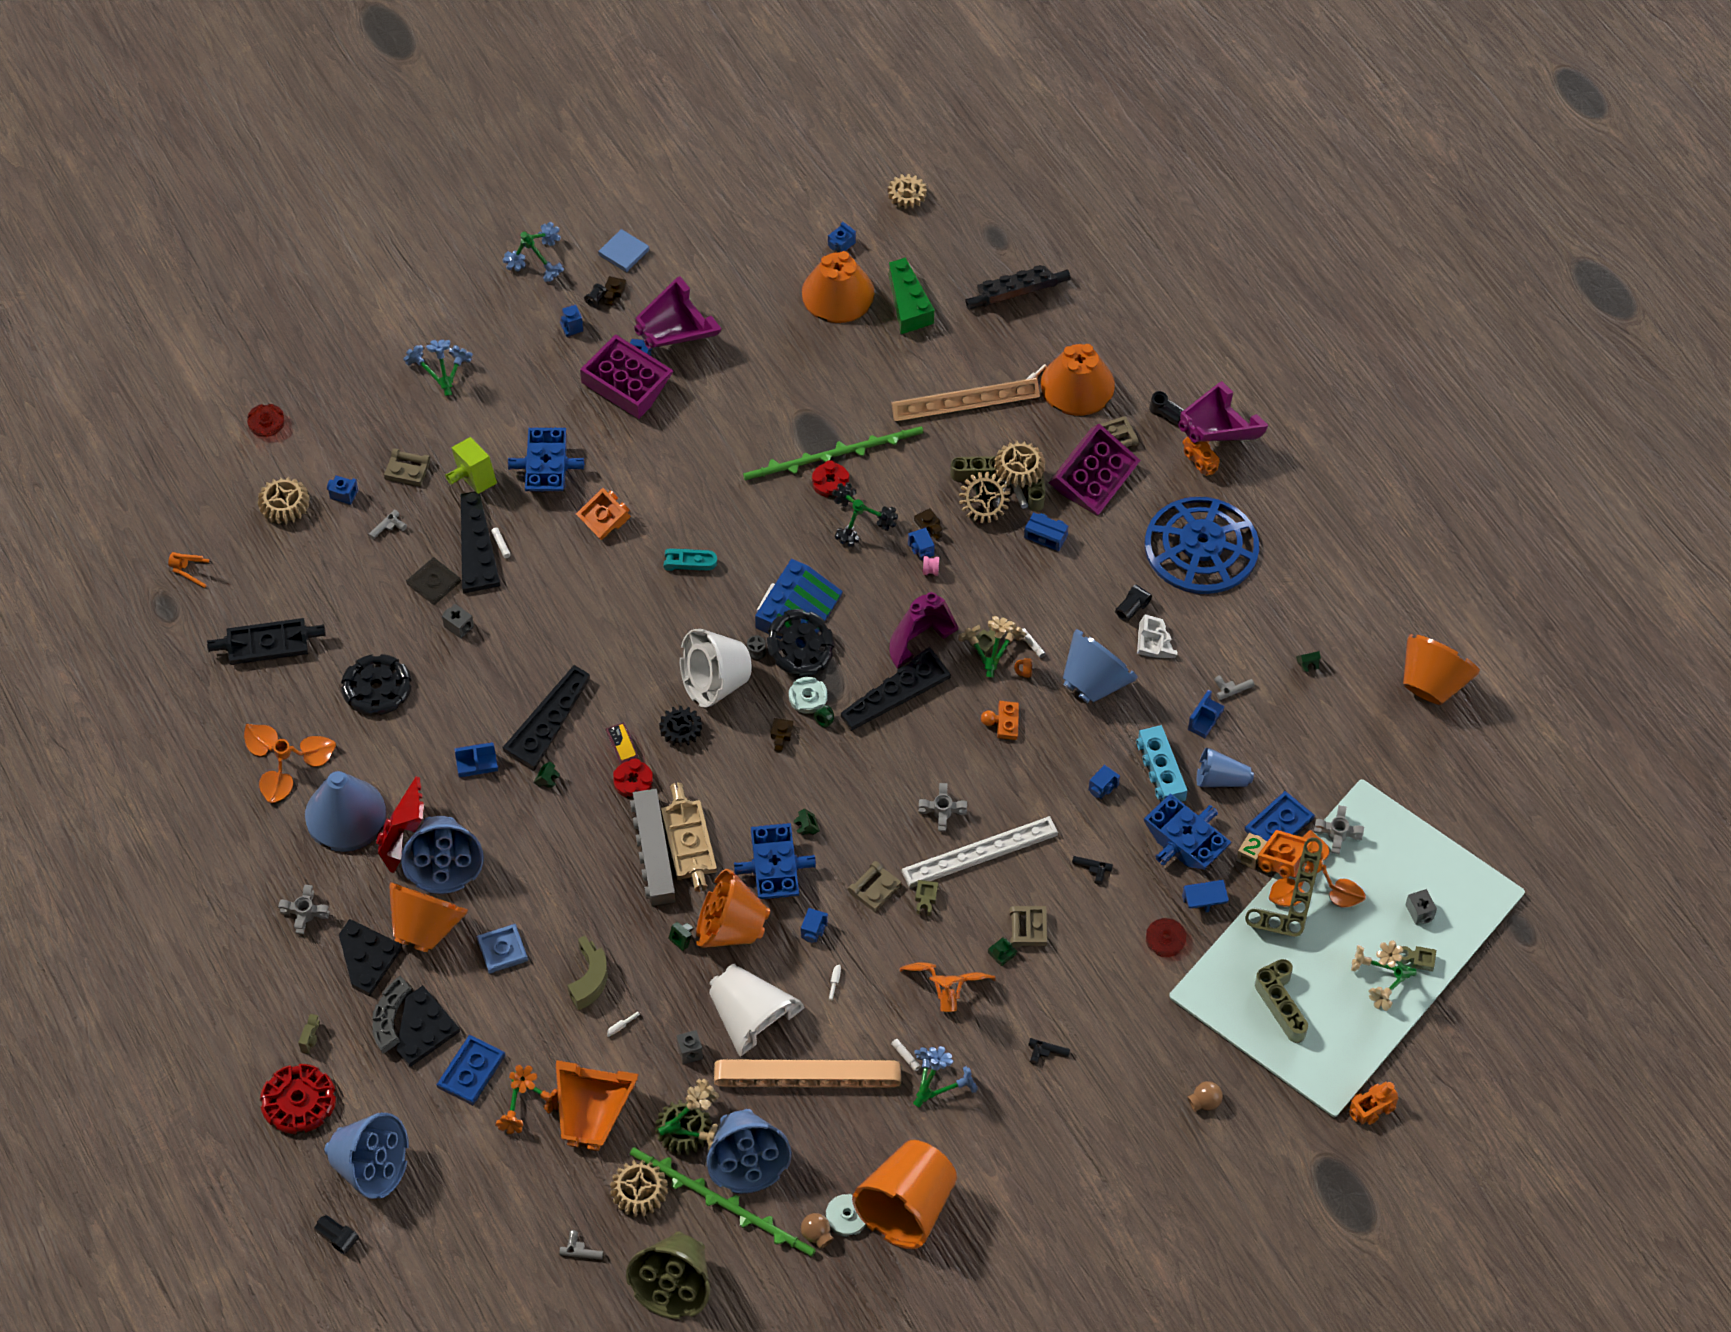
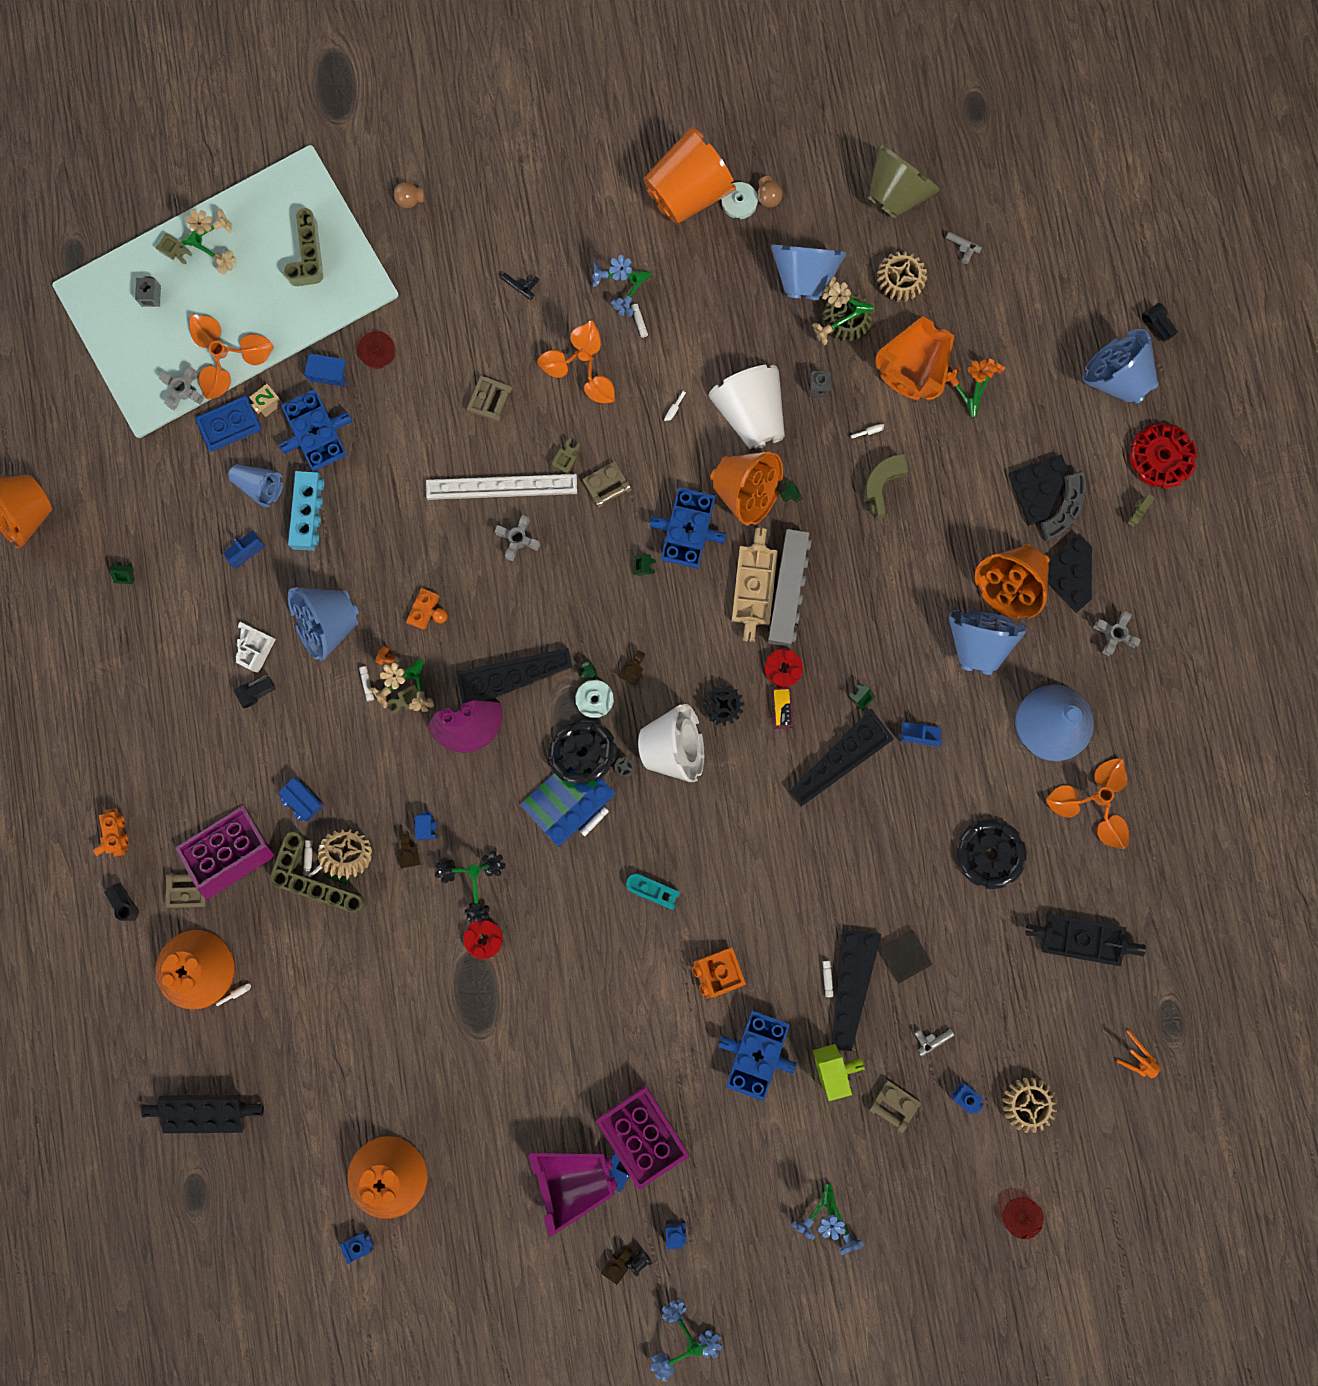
camera: 160 degrees left, 25 degrees up
(405, 817) = (1016, 669): red wedge -> none
(457, 621) = (889, 895): dark grey brick -> none
(471, 1069) = (1009, 433): blue tile -> none
(502, 948) = (950, 538): medium blue tile -> none
(623, 250) = (589, 1317): medium blue tile -> none
(730, 1204) = (829, 240): bright green plant -> none
(807, 1073) = (728, 328): light nougat beam -> none
(813, 925) = (674, 461): blue brick -> none
(840, 449) = (460, 971): bright green plant -> none
(907, 191) = (264, 1281): tan gear -> none
(910, 300) = (318, 1136): green wedge -> none
(931, 566) = (426, 799): bright pink wheel -> none
(965, 399) = (313, 986): light nougat plate -> none
(1002, 951) = (521, 385): dark green tile -> none
(1022, 459) = (295, 883): tan gear -> none
(1094, 867) = (408, 436): black hose -> none
(1103, 782) = (365, 512): blue brick -> none
(1201, 551) = (171, 737): blue dish -> none
(1215, 420) = (77, 854): magenta cone -> none
(1231, 688) = (206, 572): light grey hose -> none
(1282, 854) = (239, 380): orange plate -> none
(1304, 897) = (248, 320): olive beam -> none
(1377, 1101) = (274, 141): orange brick -> none

